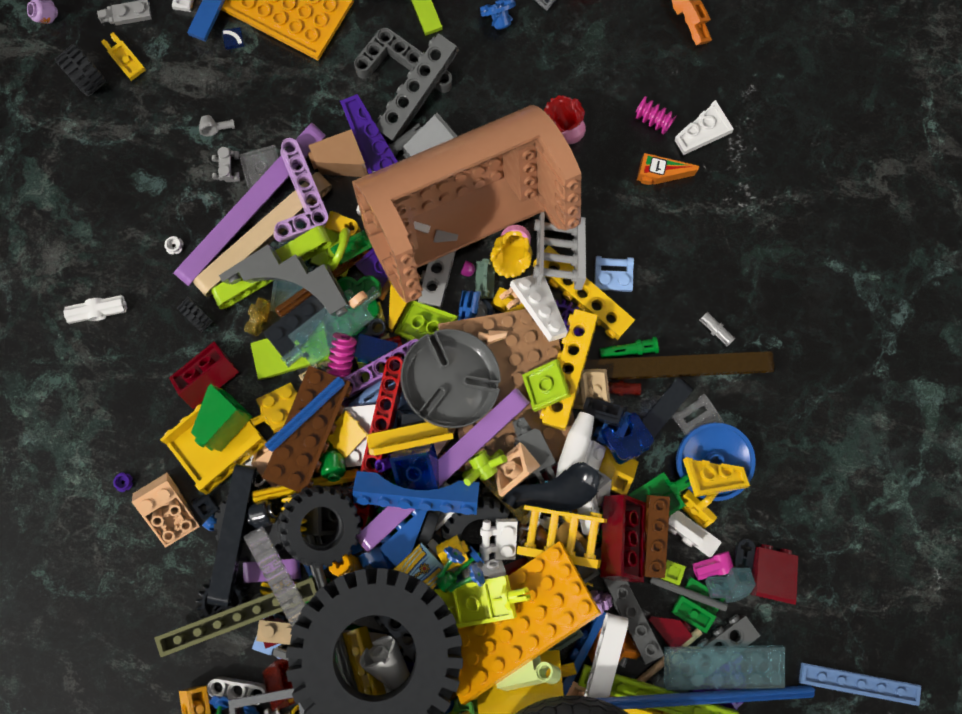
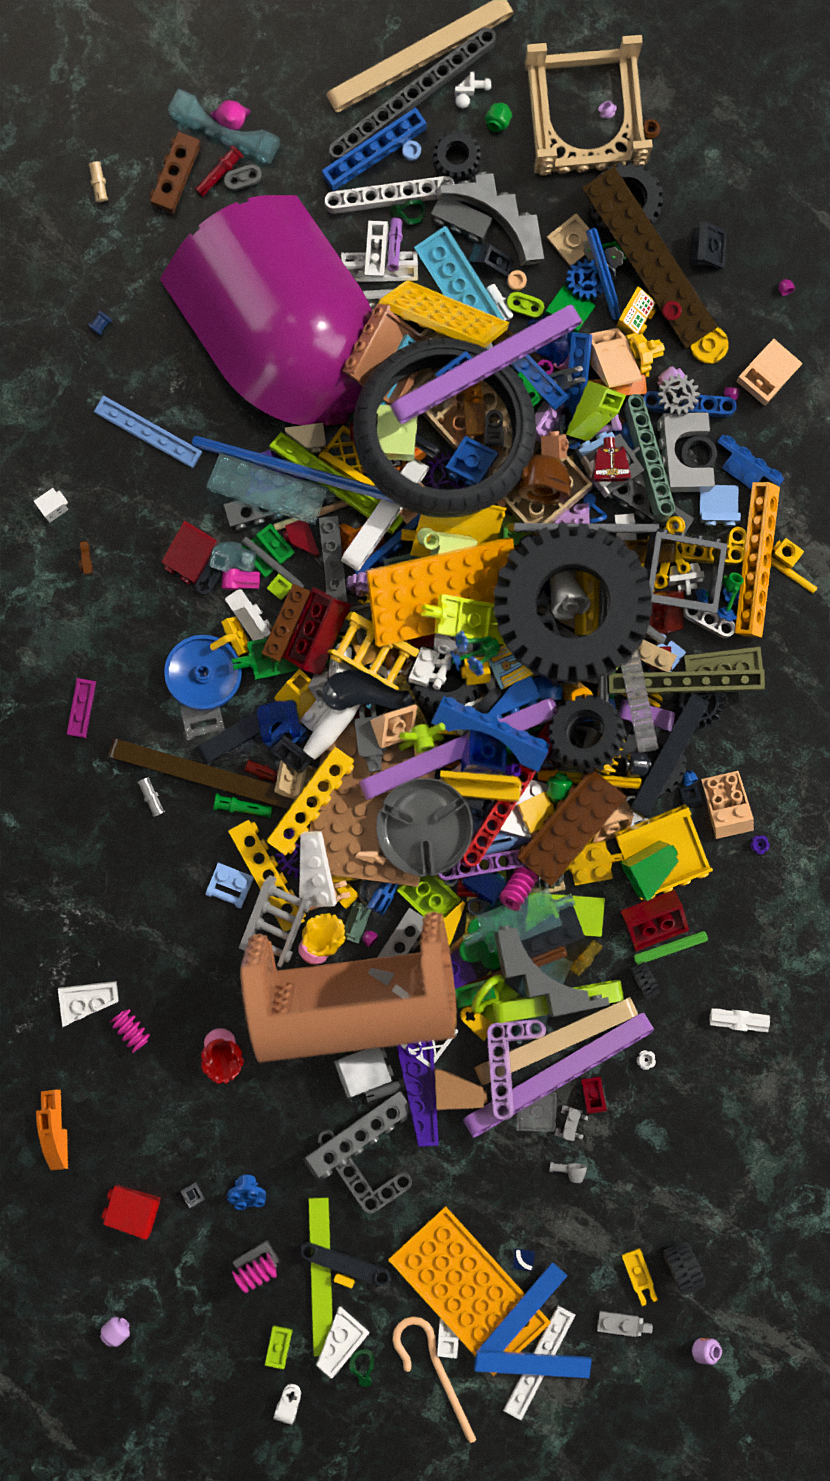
camera: 160 degrees left, 5 degrees up
(181, 355) = (670, 947): none -> bright green axle
(206, 653) = (725, 660): none -> olive wing
(211, 195) = (593, 1095): none -> dark red slope
(305, 414) = (568, 840): blue axle -> none
(358, 299) = (484, 934): light nougat tile -> none
(546, 385) = (338, 792): lime tile -> none
(659, 169) = (147, 973): orange slope -> none
(713, 478) = (213, 657): yellow wing -> none
(813, 390) = (81, 708): none -> magenta tile
(867, 531) = (86, 562): none -> reddish brown plate
(926, 575) = (52, 504): none -> white brick

